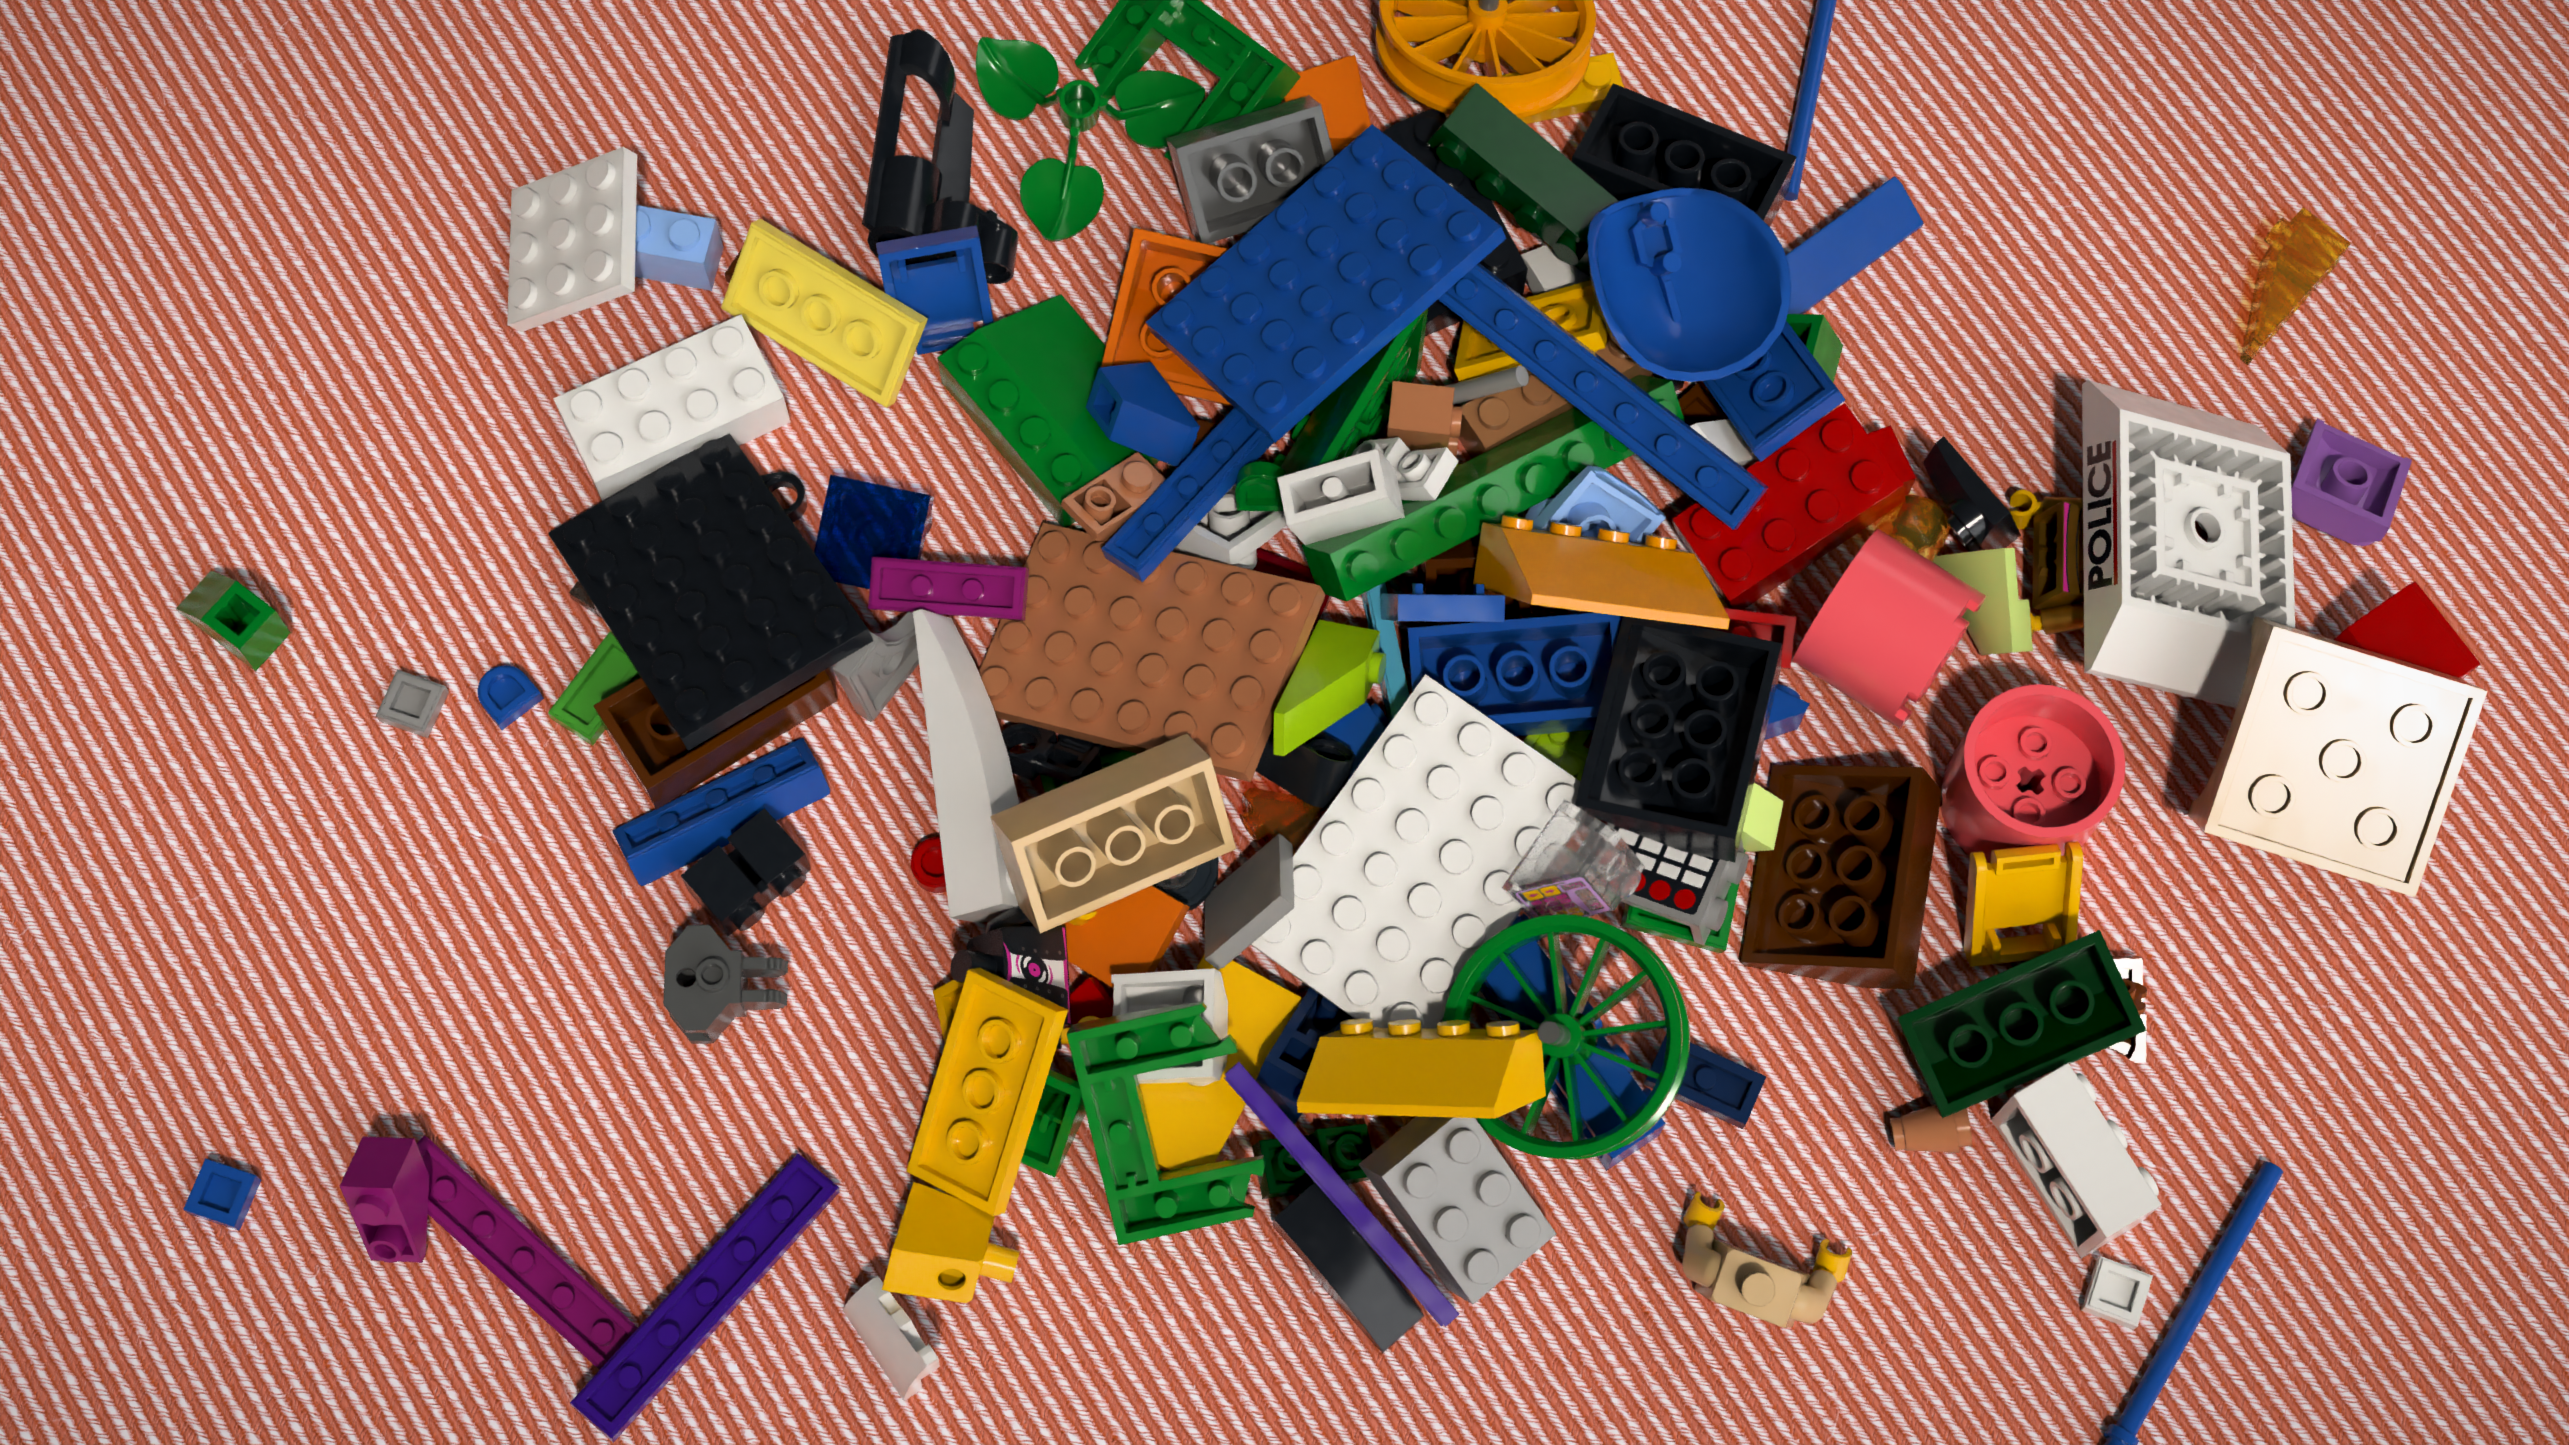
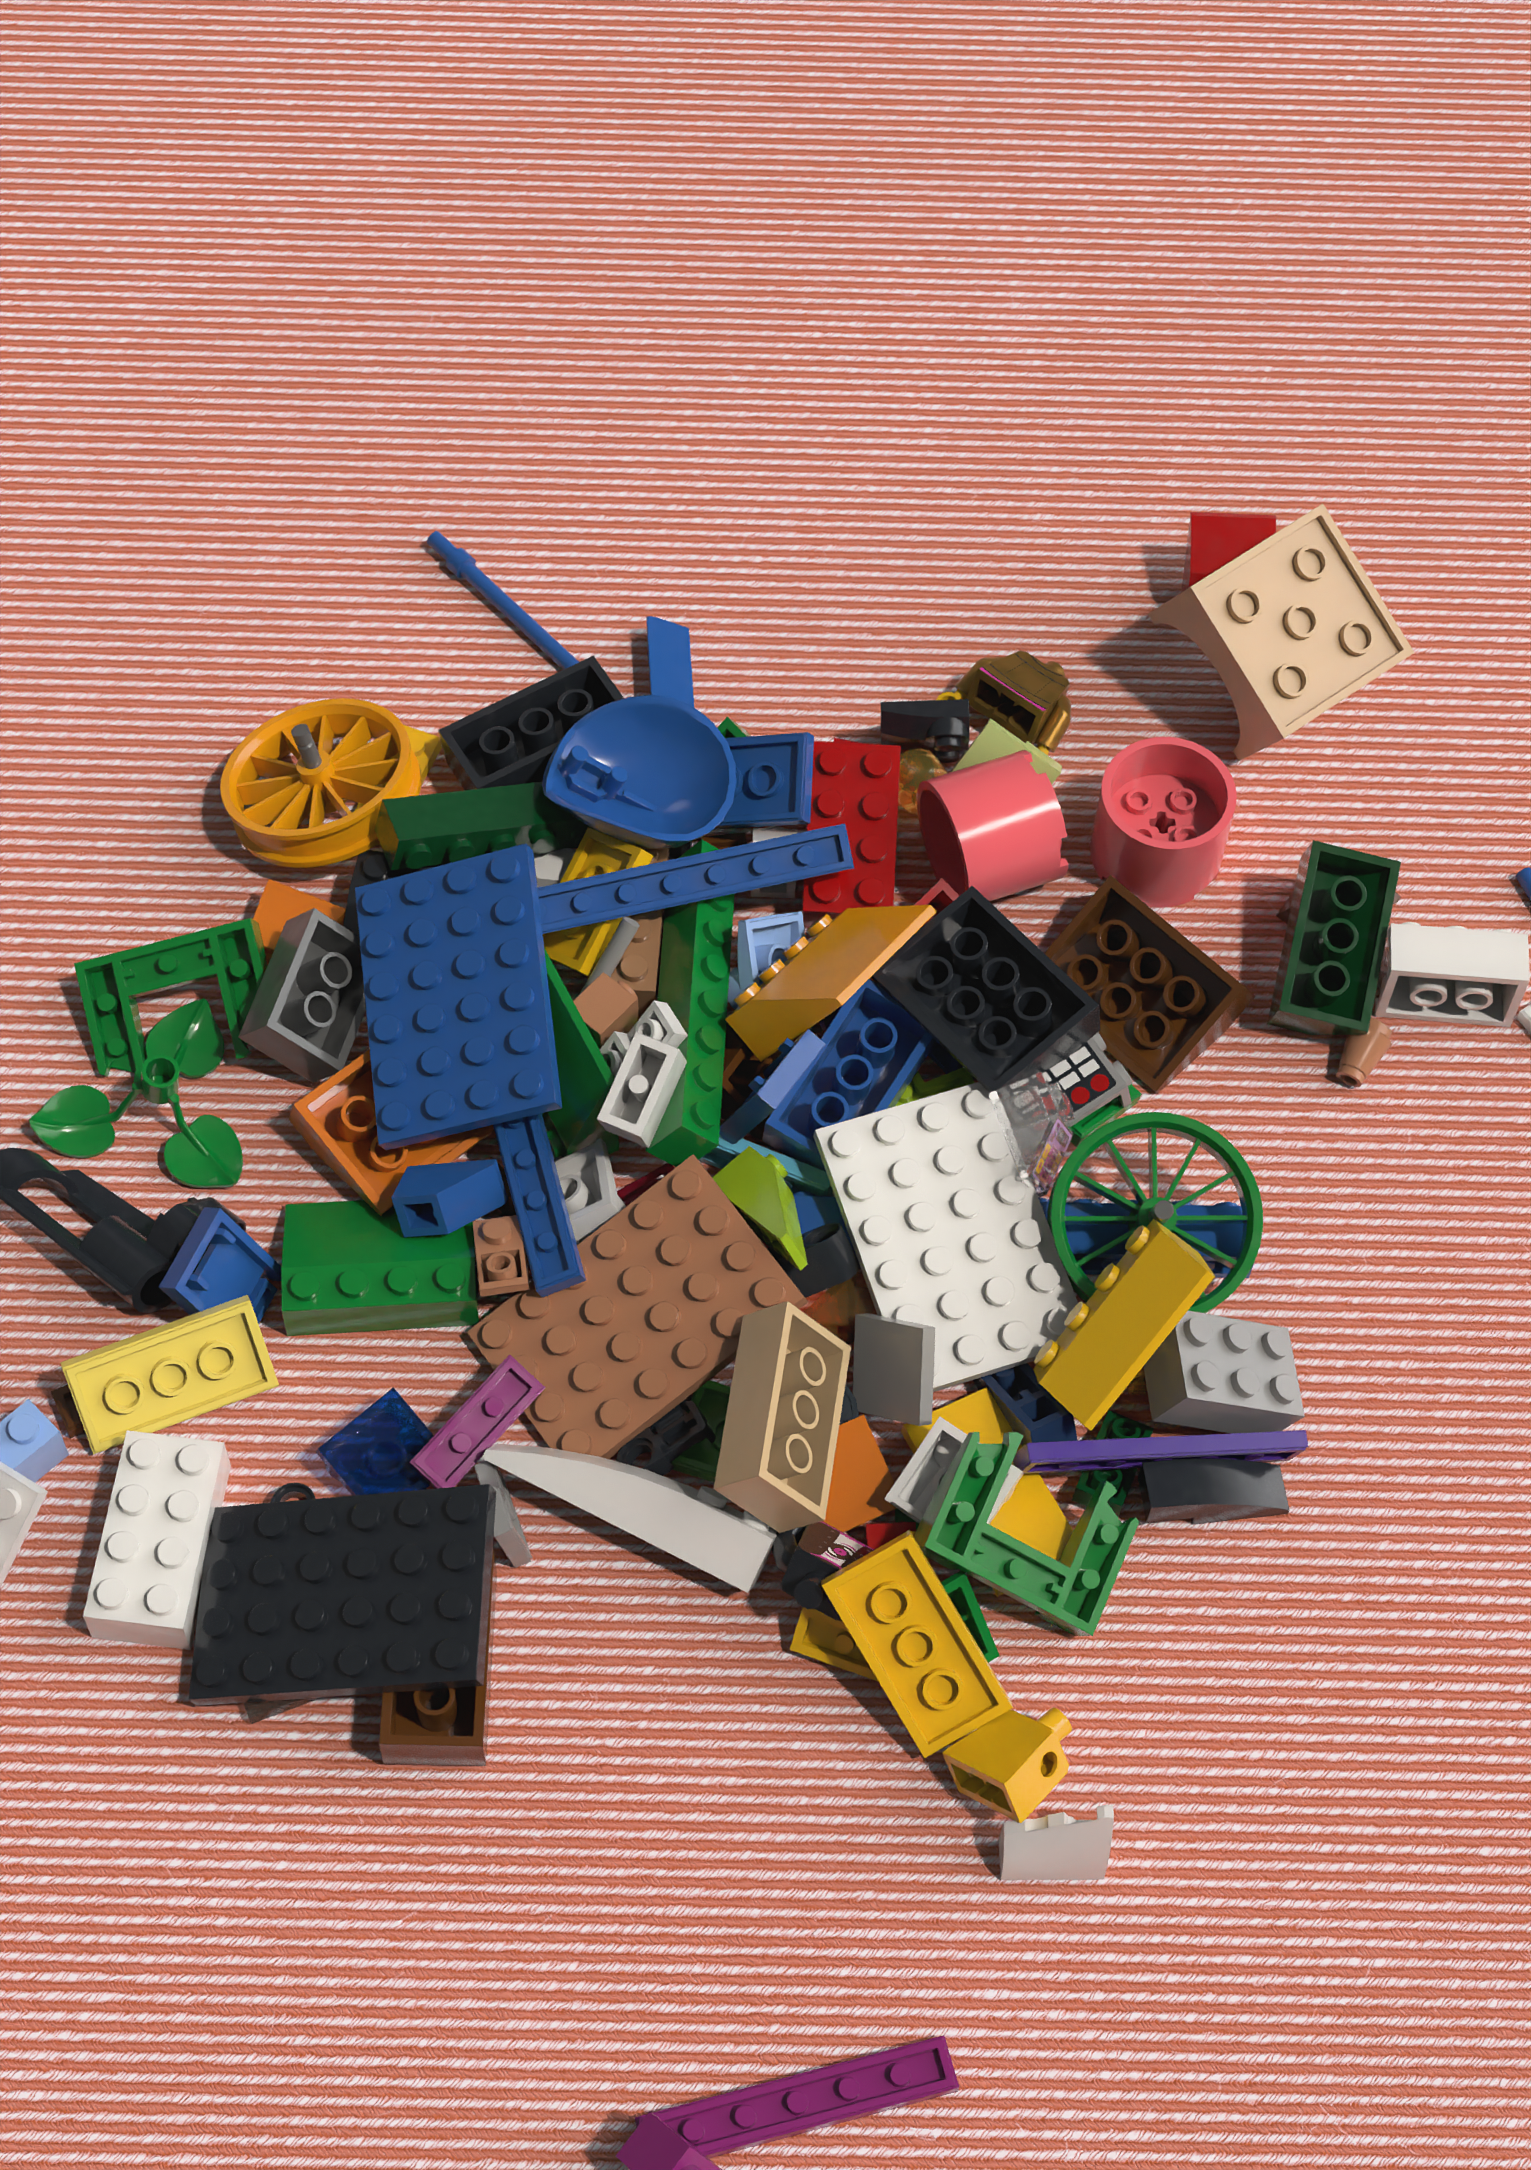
camera: 55 degrees left, 10 degrees down
(235, 618) = (60, 1999): green slope -> none
(412, 703) = (247, 1904): light grey tile -> none
(507, 694) = (297, 1823): blue tile -> none
(599, 678) = (349, 1746): bright green tile -> none
(704, 1298) = (927, 1975): dark purple tile -> none
(709, 815) = (523, 1718): blue slope -> none
(719, 984) = (677, 1801): dark grey hinge -> none
(750, 877) = (596, 1725): black piece -> none
(928, 866) = (686, 1585): red tile -> none
(1259, 487) = (575, 1152): green tile -> none
(1715, 1084) = (1206, 1169): dark blue plate -> none
(1755, 1282) = (1399, 1230): tan torso -> none
(2021, 890) = (1237, 876): yellow container -> none
(2155, 593) = (1061, 625): white slope -> none
(2289, 272) = (904, 451): clear yellow slope -> none
(2347, 486) = (1080, 516): medium lavender slope -> none

